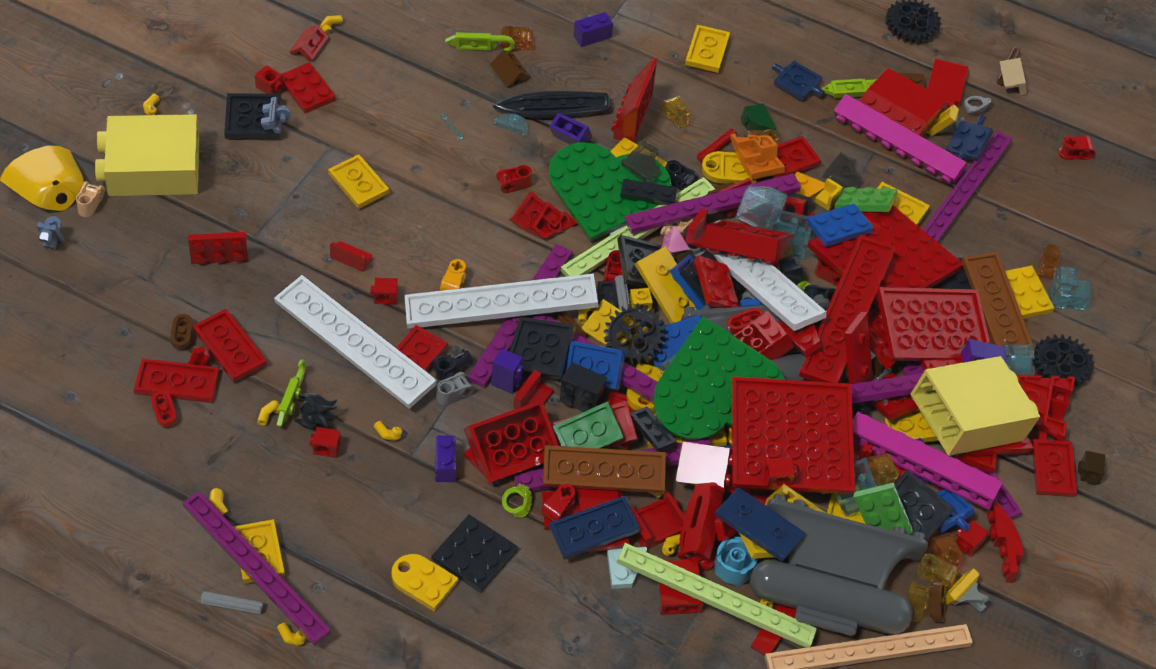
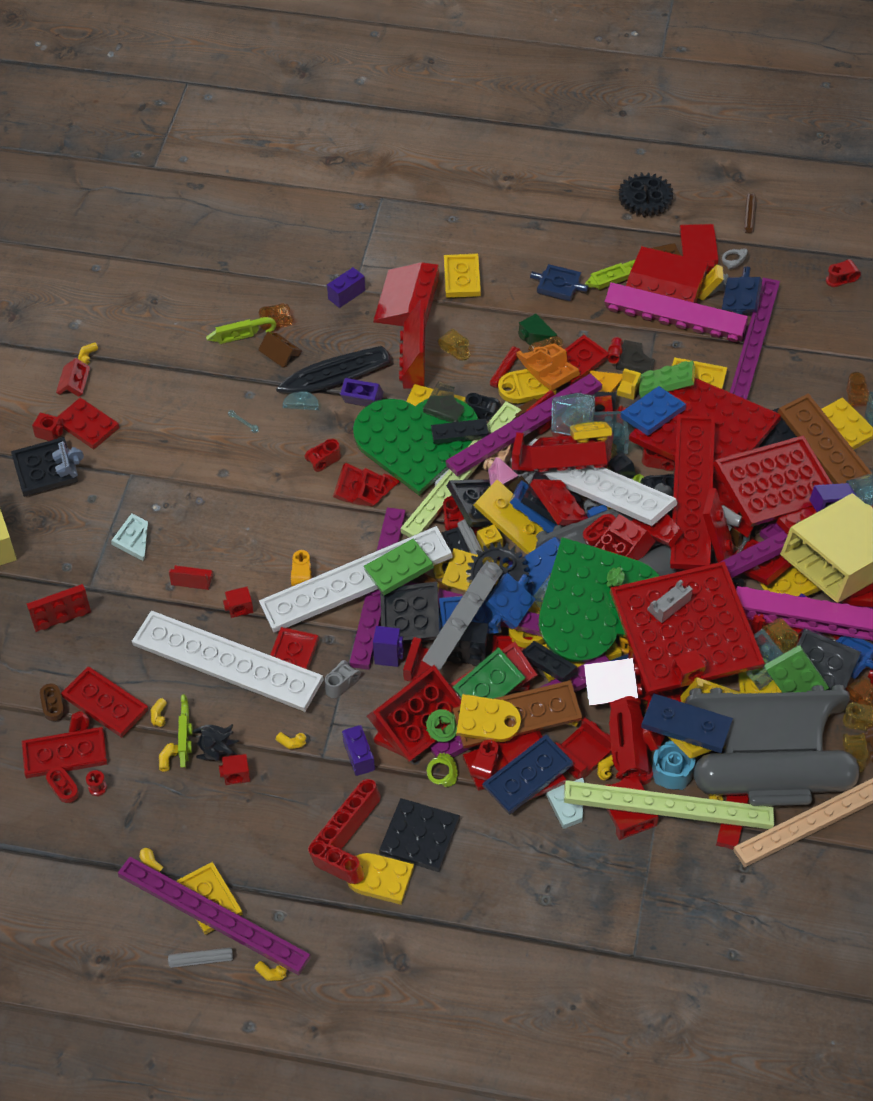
camera: 10 degrees left, 0 degrees up
(196, 416) = (94, 784): none -> red bush
(271, 375) = (156, 718): none -> yellow arm
(310, 203) = (132, 537): none -> light aqua wing
(358, 181) = (172, 501): yellow plate -> none
(384, 537) = (327, 845): none -> red beam
(451, 364) = (330, 655): black connector -> none
(536, 452) = (445, 717): none -> bright green gear
(543, 300) = (398, 566): none -> bright green plate
(572, 463) = (485, 719): none -> yellow plate
(584, 360) = (462, 614): none -> light grey arch
(634, 362) = (509, 601): none -> blue plate
(646, 43) = (404, 289): none -> slope
(740, 368) = (615, 577): none -> bright green plate
(771, 225) = (584, 431): none -> yellow plate
(784, 406) = (670, 602): none -> light grey hinge
(827, 159) = (615, 350): none -> red pin
(876, 345) = (731, 517): none -> light grey cone
(1013, 75) = (759, 220): tan panel -> none

